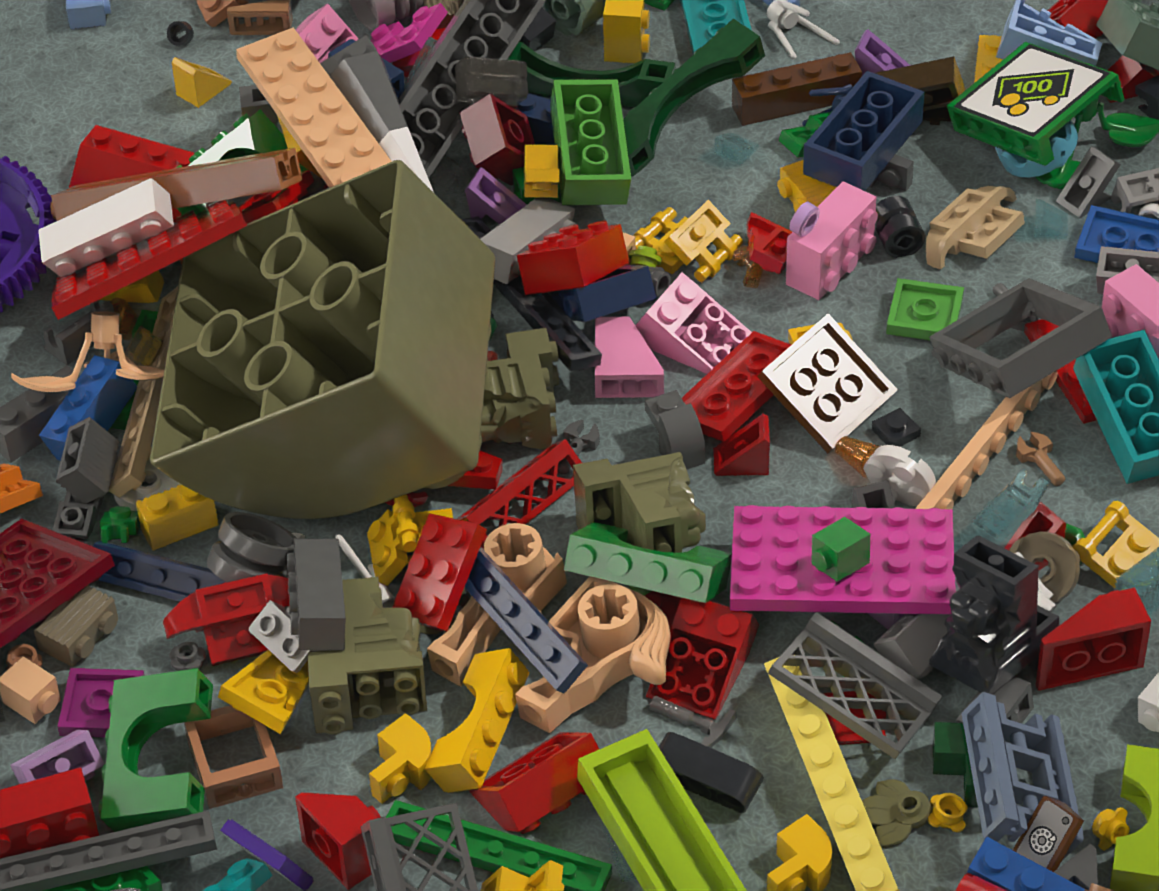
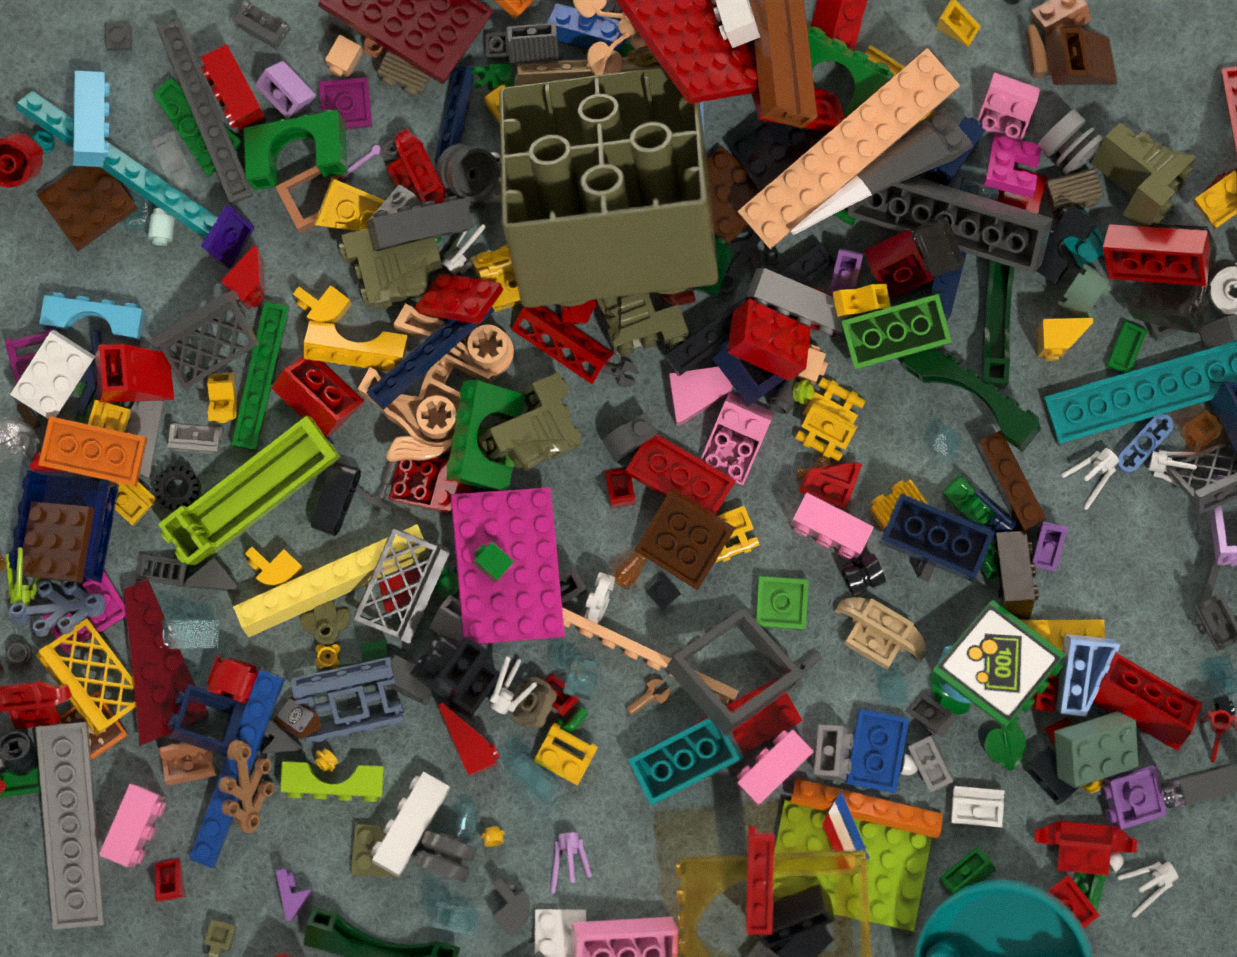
camera: 80 degrees right, 35 degrees up
(804, 219) = (816, 503): lavender tile -> none

